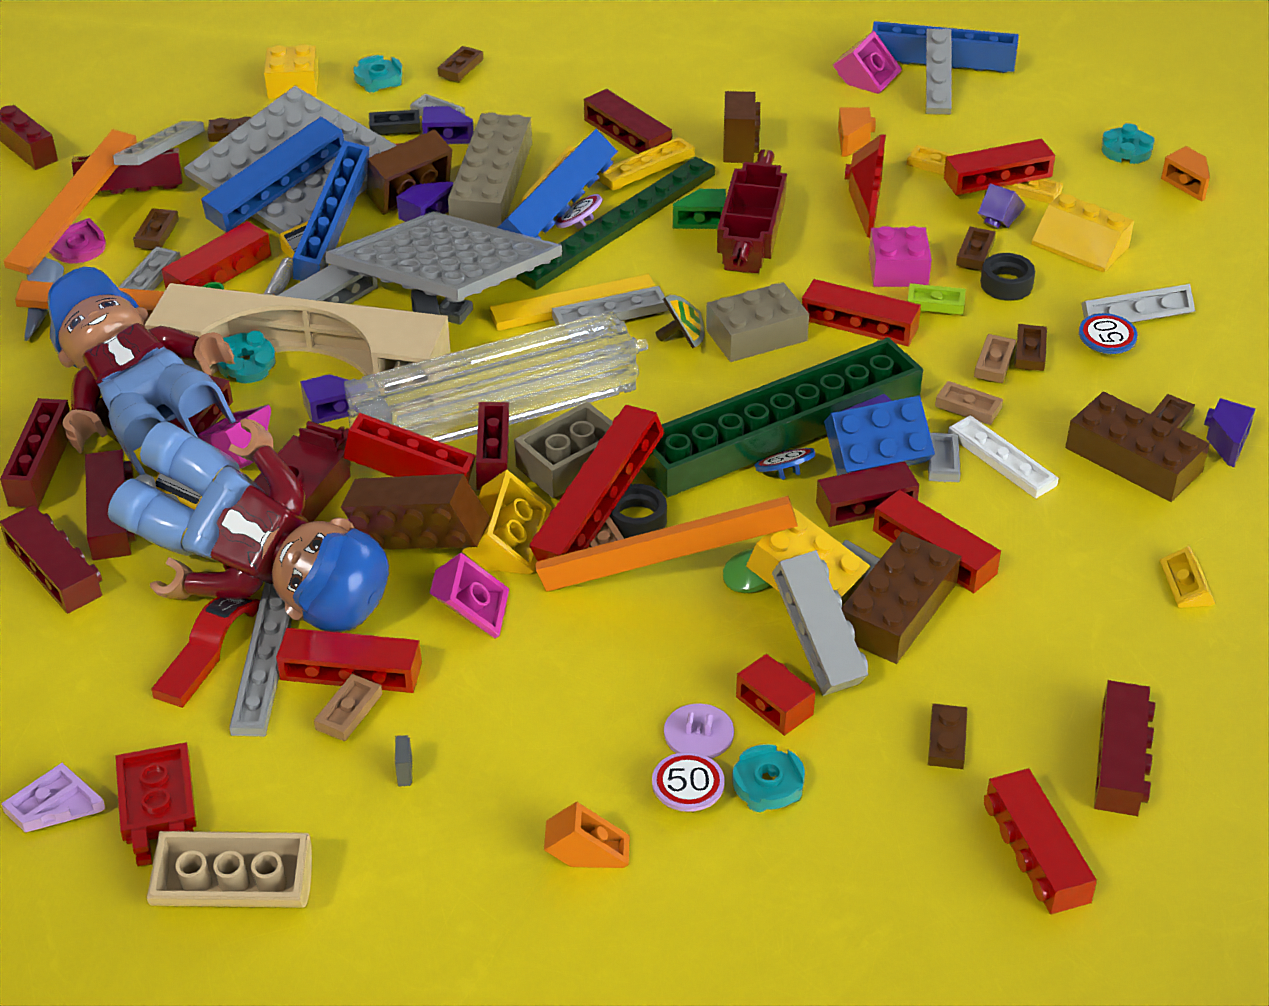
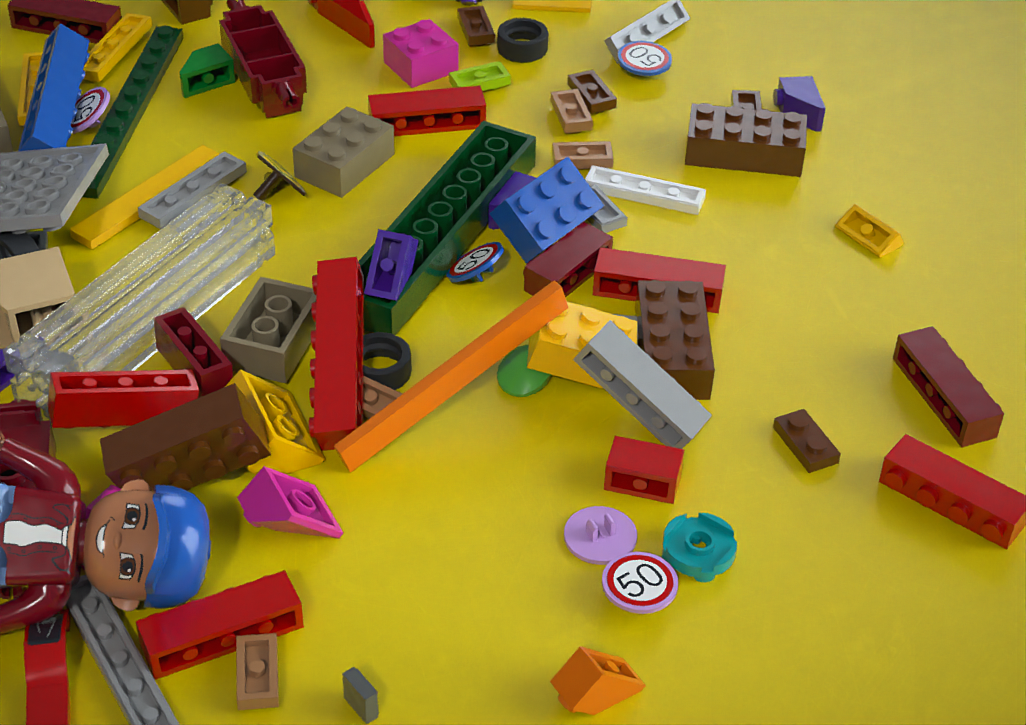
camera: 35 degrees left, 0 degrees up
(690, 431) = (390, 264): none -> dark purple slope

